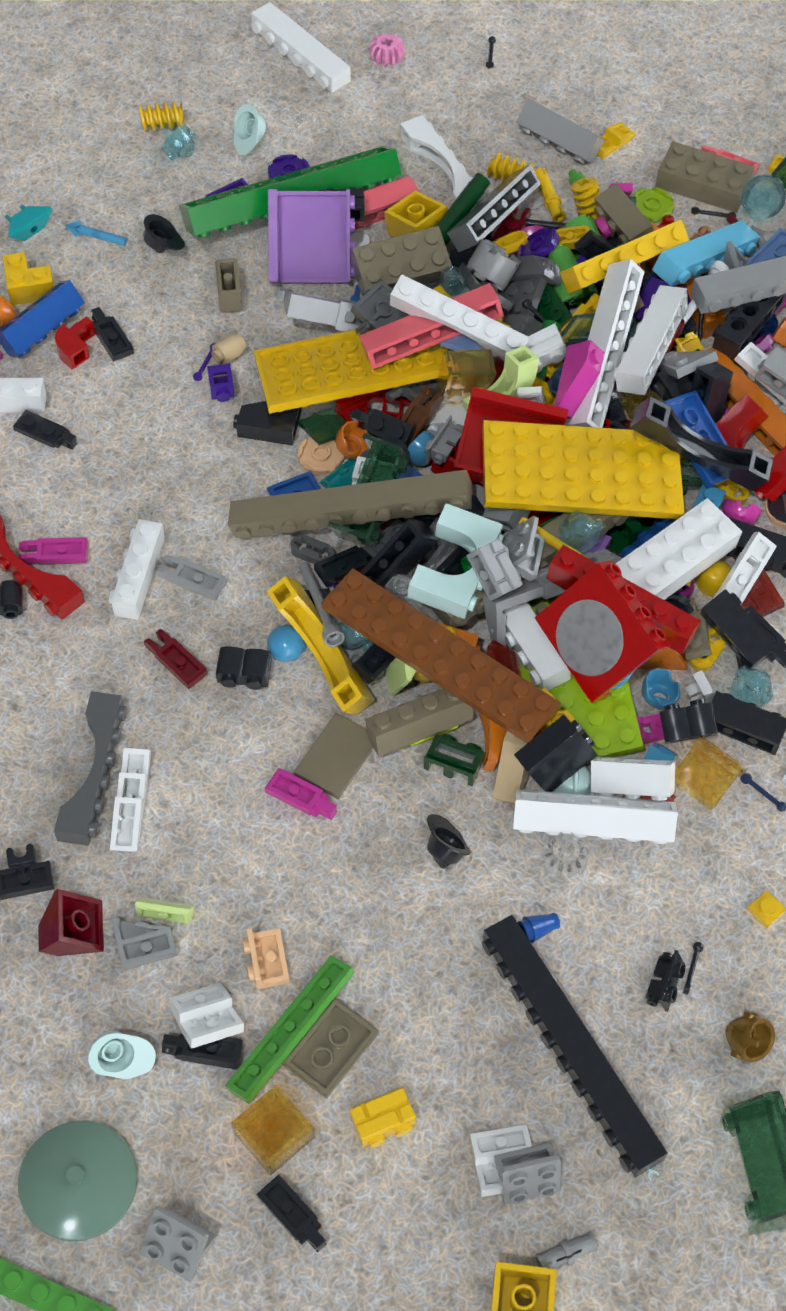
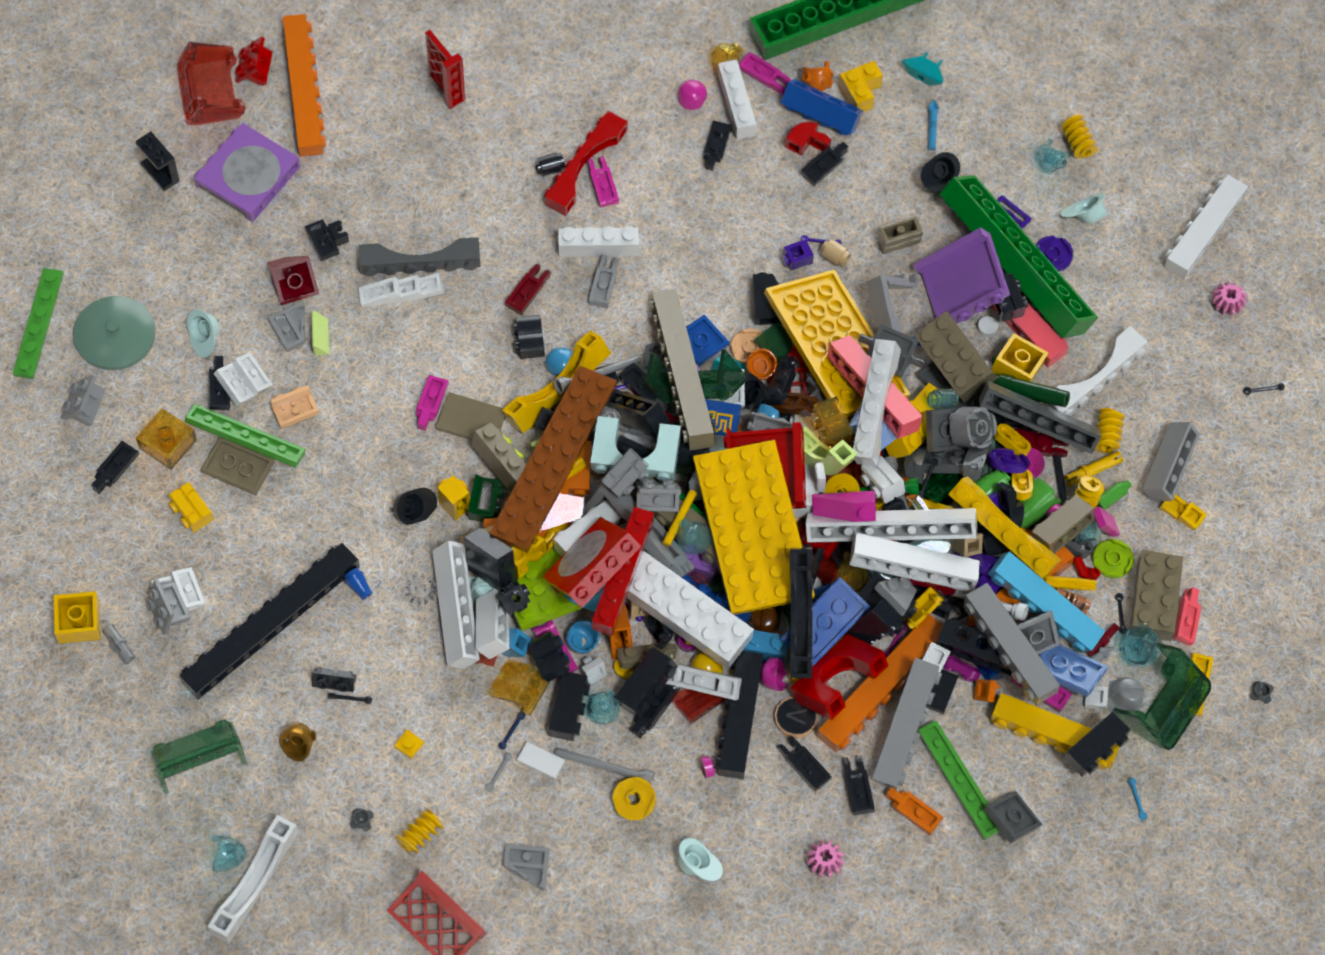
camera: 75 degrees right, 5 degrees up
(450, 787) = (454, 497): none -> yellow brick
(612, 738) = (512, 604): none -> black brick

